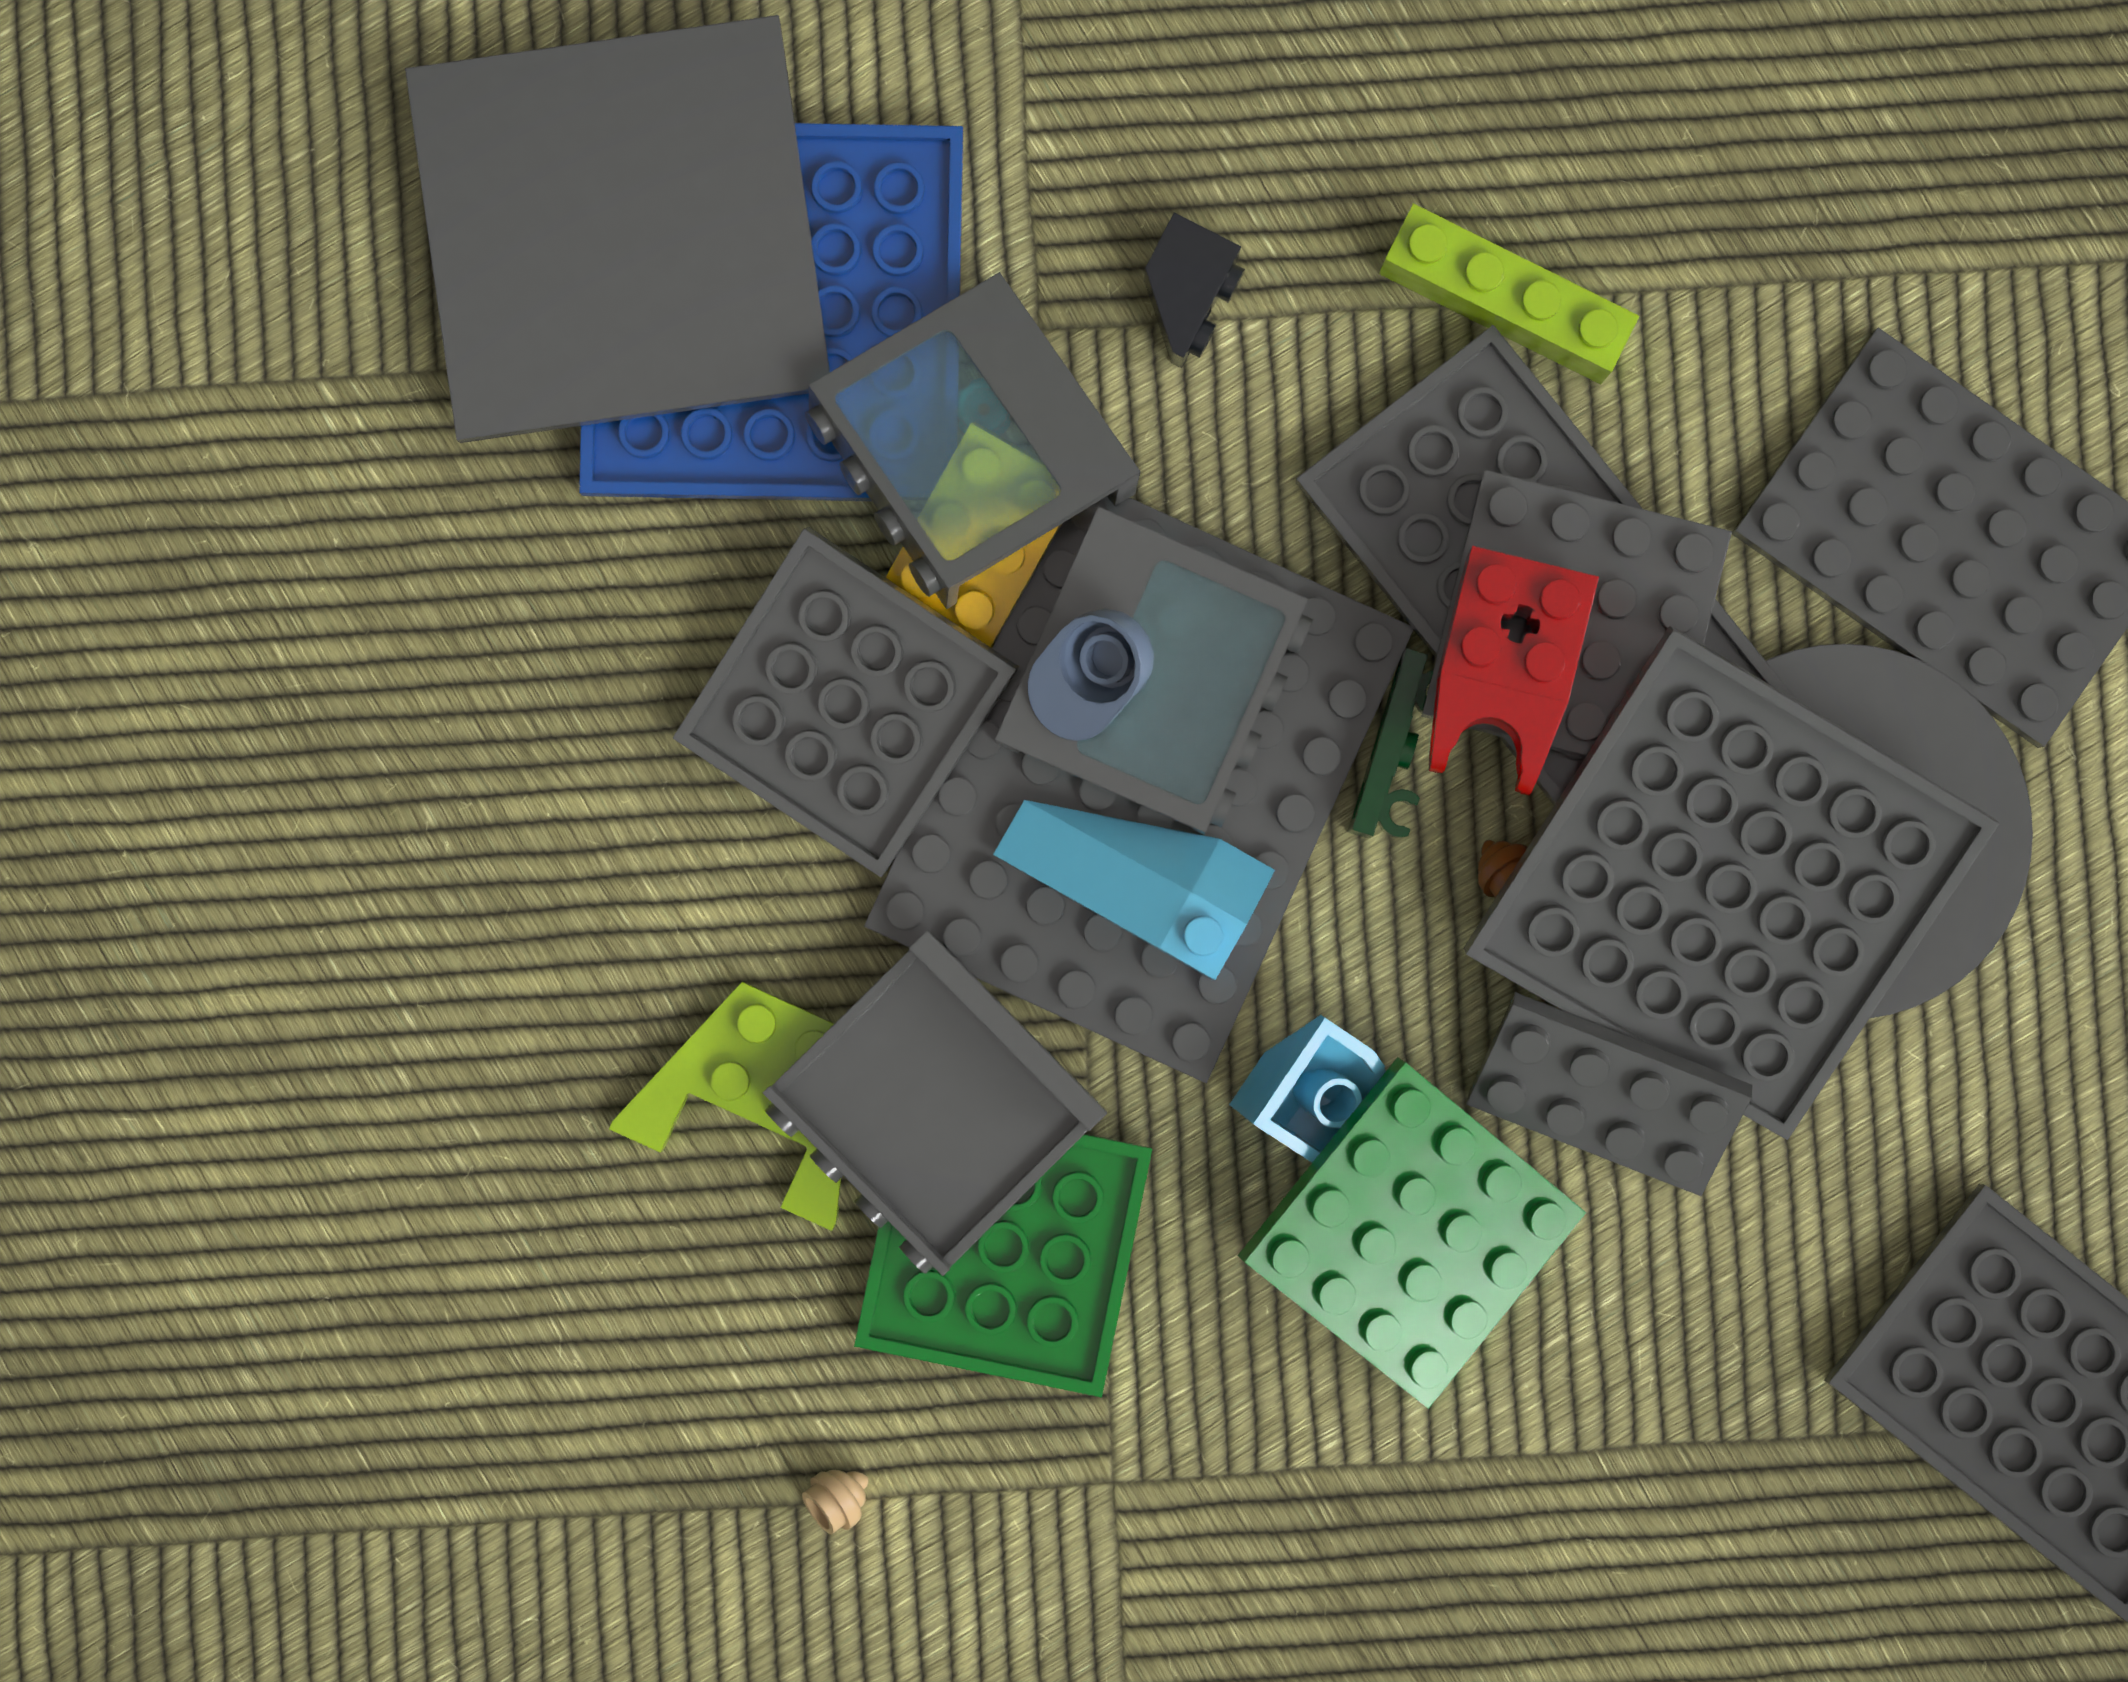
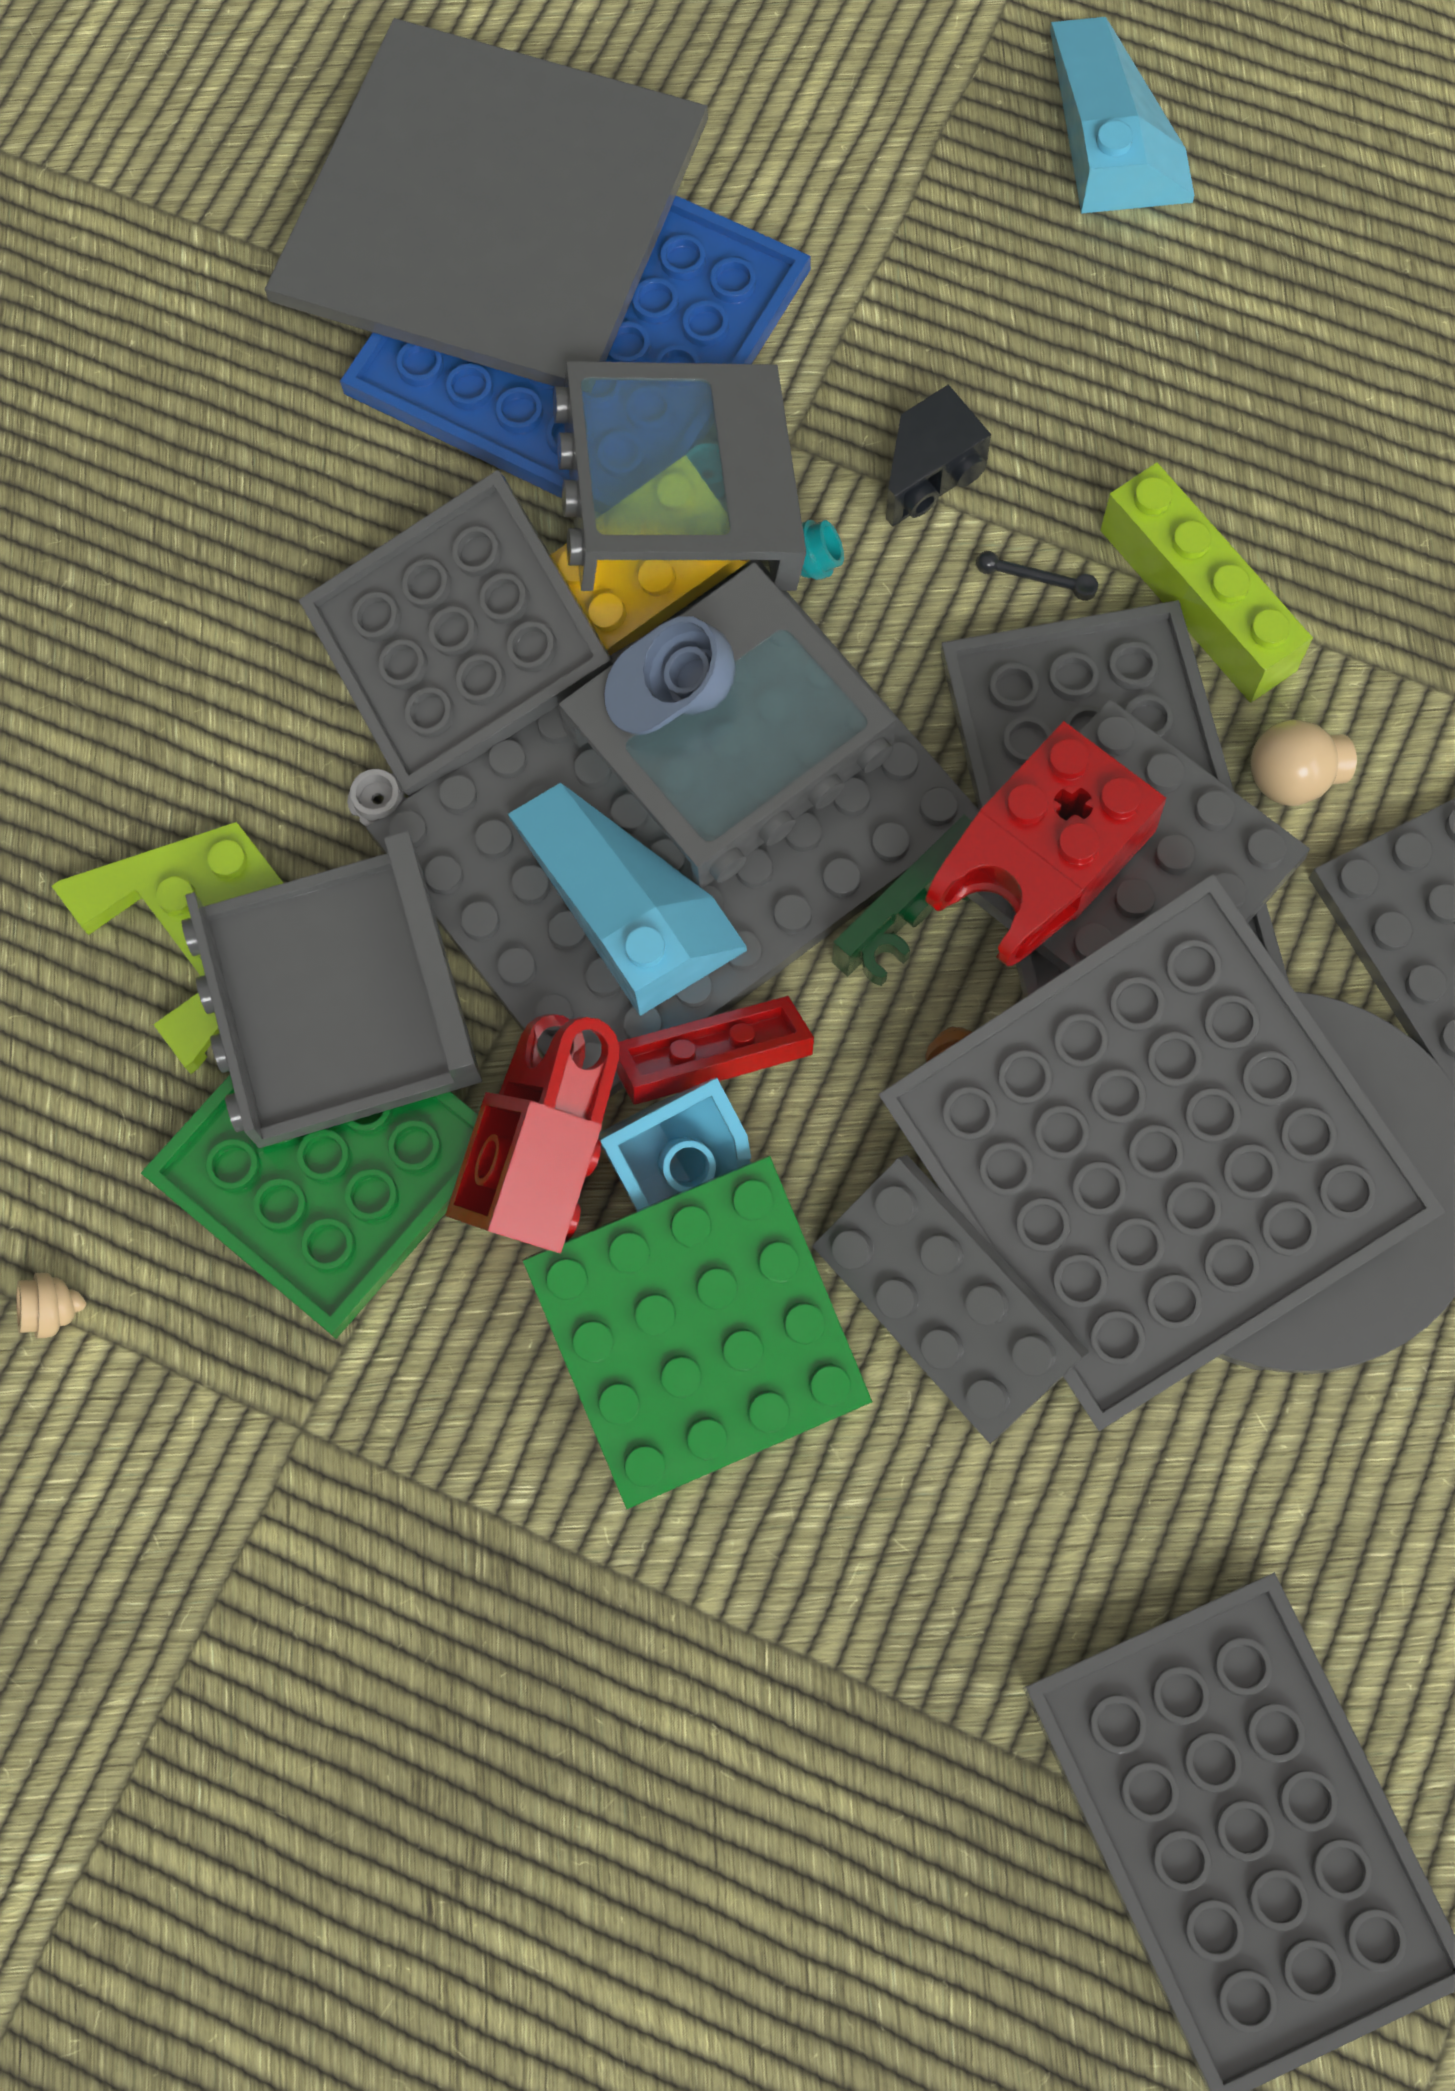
camera: 30 degrees right, 15 degrees down
(840, 898) = (369, 785): none -> light grey plate
(1135, 434) = (823, 549): none -> teal plate
(1194, 1149) = (538, 1137): none -> red brick
(1293, 979) = (711, 1048): none -> red plate
(1392, 344) = (1084, 586): none -> black hinge
(1679, 434) = (1300, 762): none -> tan piece

